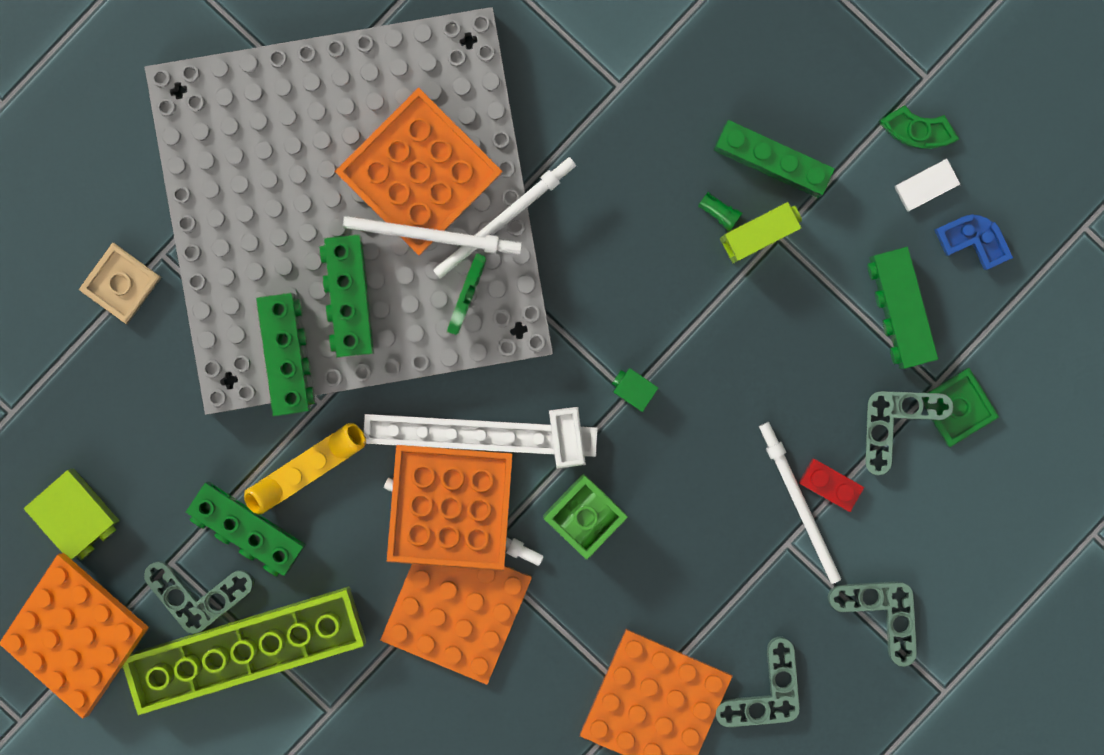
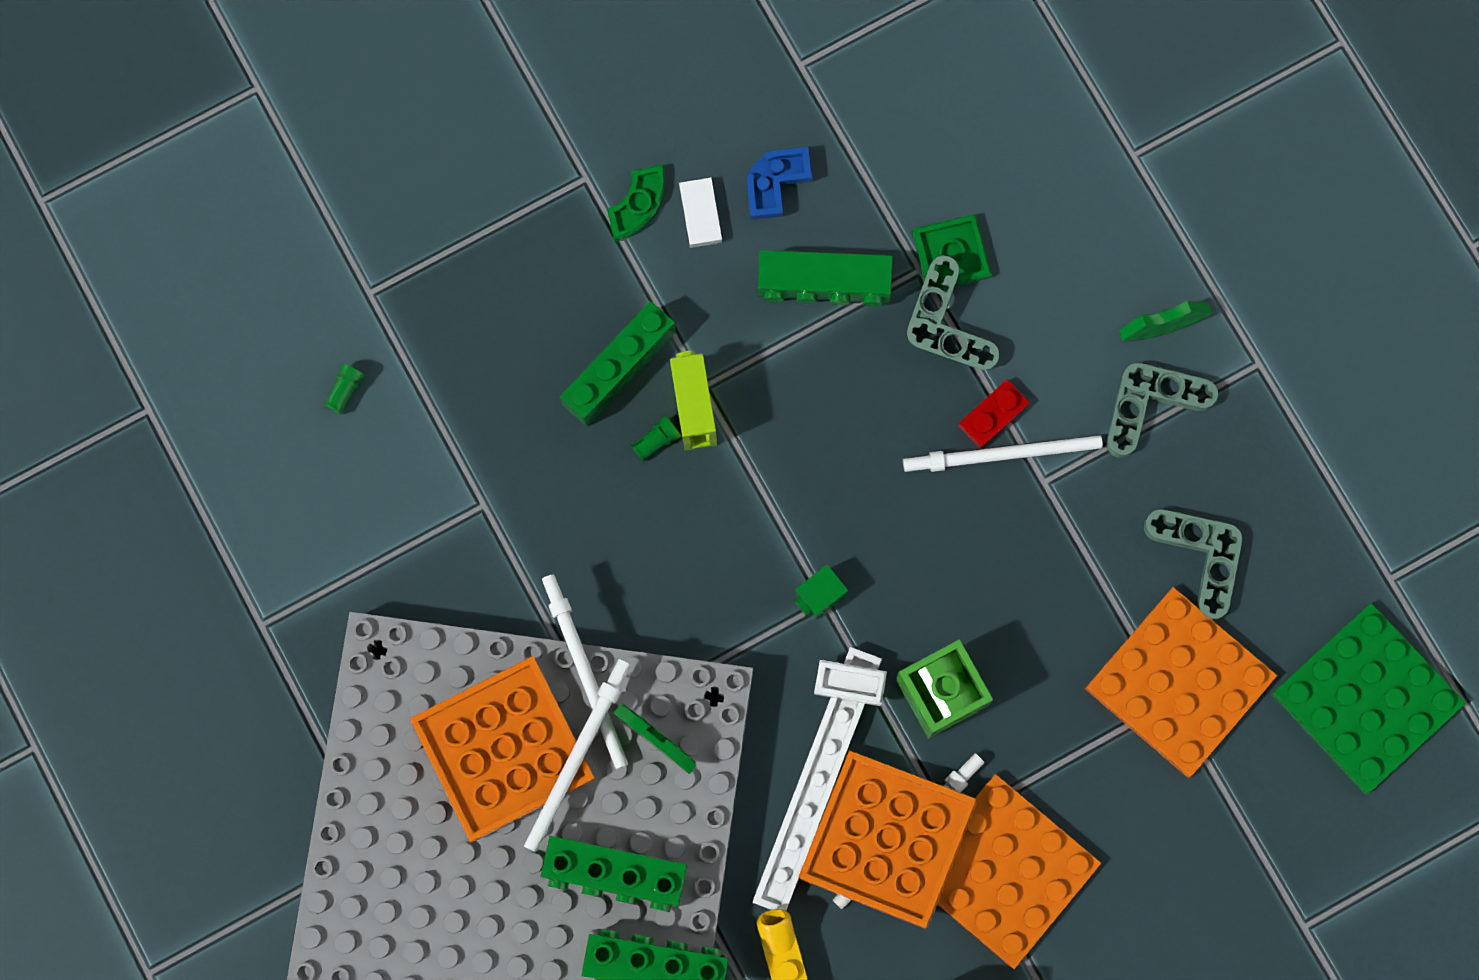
camera: 70 degrees left, 10 degrees down
(955, 605) = (1165, 322): none -> green tile

